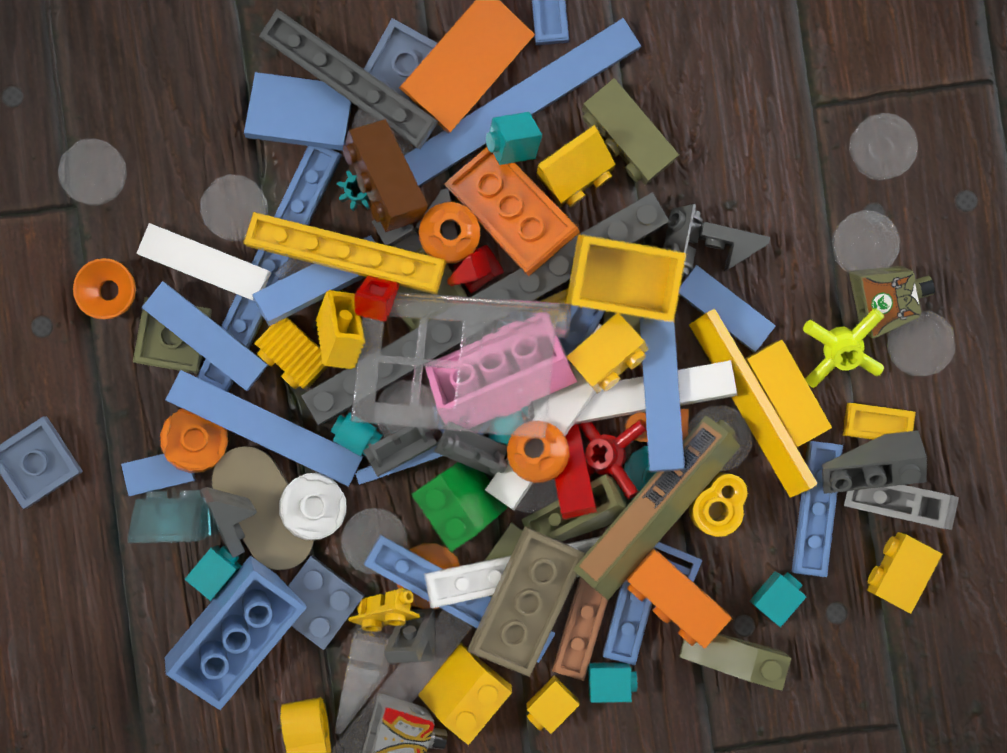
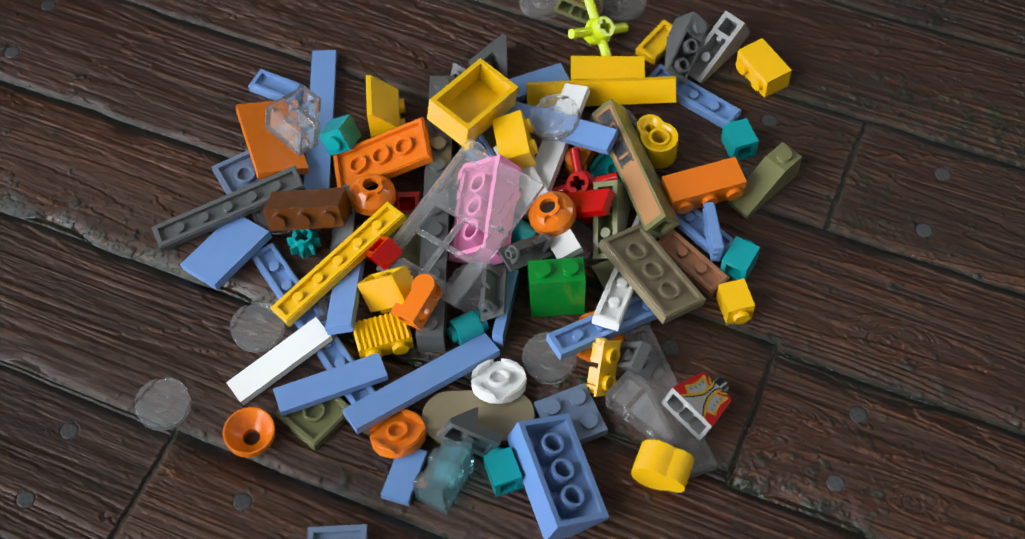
camera: 55 degrees left, 30 degrees down
(335, 383) = (419, 302): none -> orange leg
(465, 693) = (696, 348): yellow slope -> none
(471, 269) = (406, 197): red slope -> none
(489, 73) = (295, 119): none -> clear brick
(622, 638) = (712, 231): none -> medium blue tile
(628, 132) = (399, 72): olive brick -> none
(666, 382) = (555, 117): none -> clear tile

